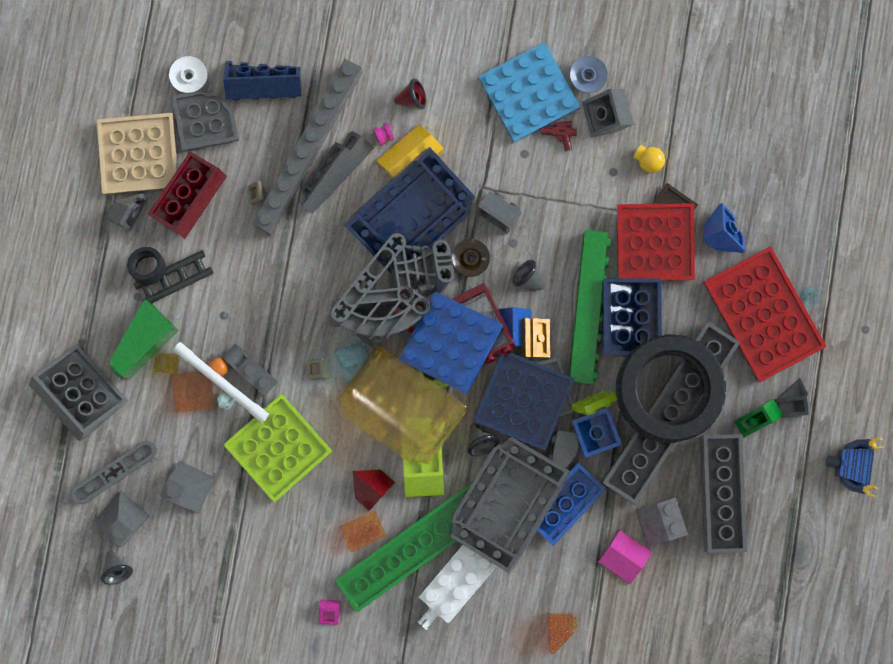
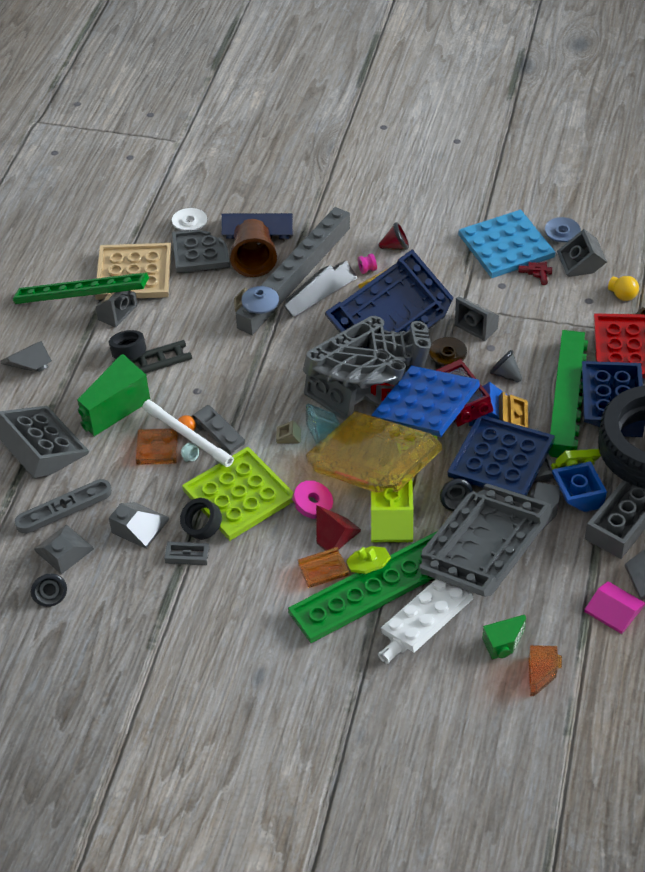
camera: 10 degrees right, 35 degrees down
(45, 287) = (30, 358): none -> dark grey slope
(87, 199) = (81, 288): none -> green tile
(166, 363) = (133, 422): clear yellow slope -> none
(187, 194) = (176, 296): dark red slope -> none
(220, 518) = (186, 555): none -> dark grey tile
(234, 491) = (191, 509): none -> black tyre
(261, 124) = (249, 257): none -> reddish brown piece
(277, 217) = (260, 299): none -> sand blue dish
(329, 612) = (278, 643): dark pink slope -> none
(337, 454) = (315, 490): none -> dark pink tile
(403, 522) = (368, 559): none -> lime piece
(527, 600) = (503, 636): none -> green slope
(572, 502) = (548, 552): blue slope -> none

